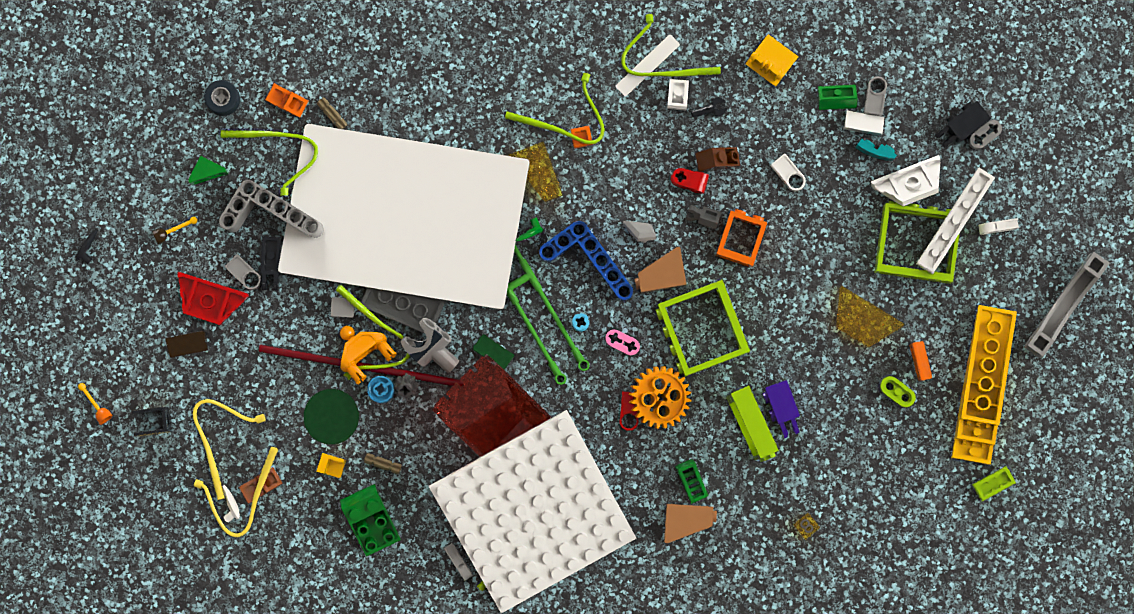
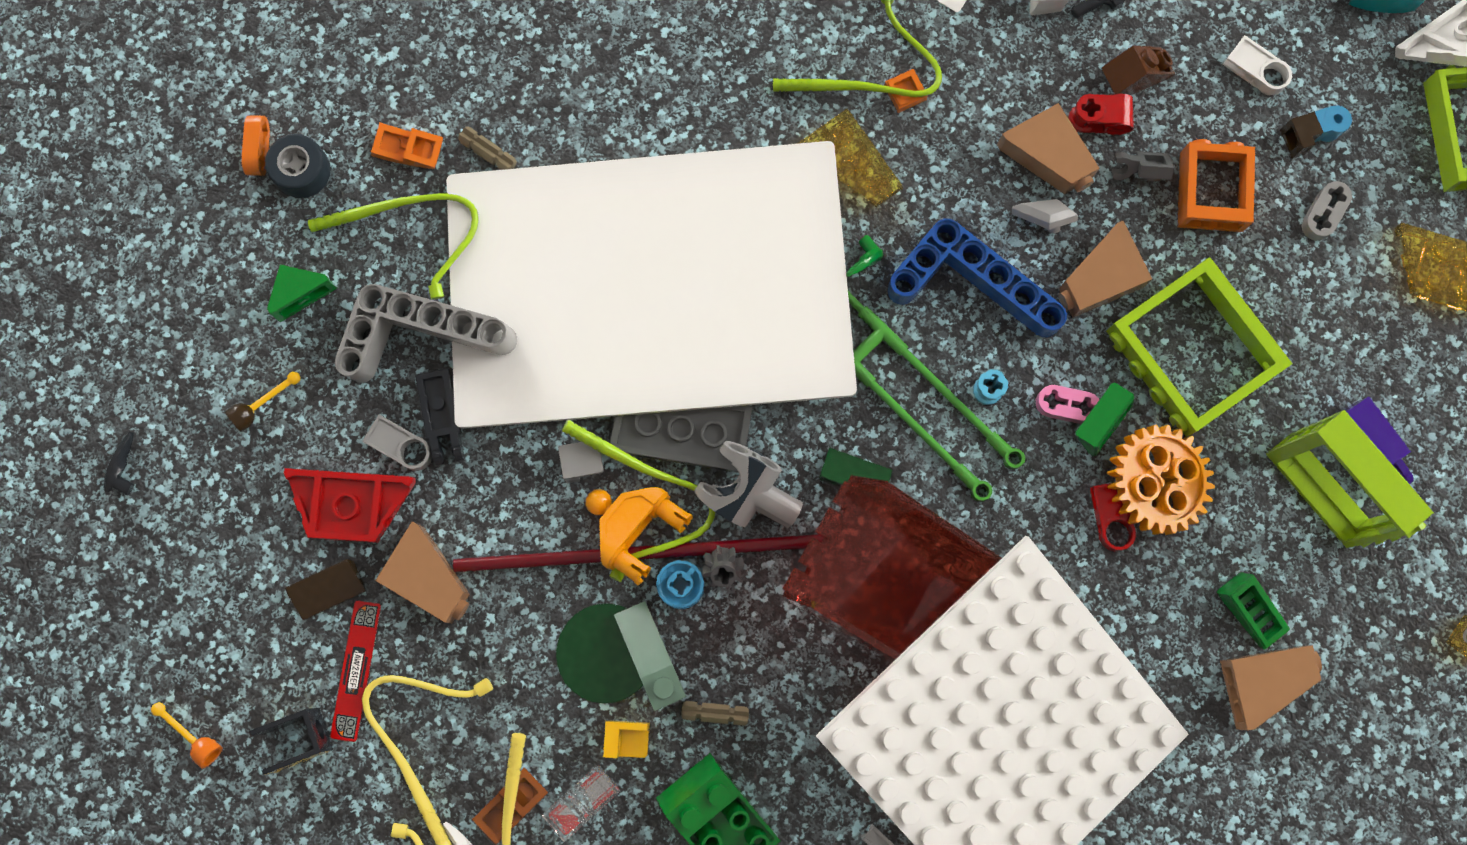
camera: 15 degrees left, 5 degrees down
(192, 392) = (355, 671): none -> sticker
(200, 79) = (255, 145): none -> orange beam
(242, 350) = (424, 576): none -> medium nougat slope
(299, 493) = (581, 803): none -> clear slope
(354, 423) = (650, 656): none -> sand green slope
(639, 356) = (1105, 418): none -> green slope
(653, 194) = (1051, 150): none -> medium nougat slope
(798, 264) = (1320, 207): none -> light grey beam
(814, 217) = (1322, 125): none -> leg

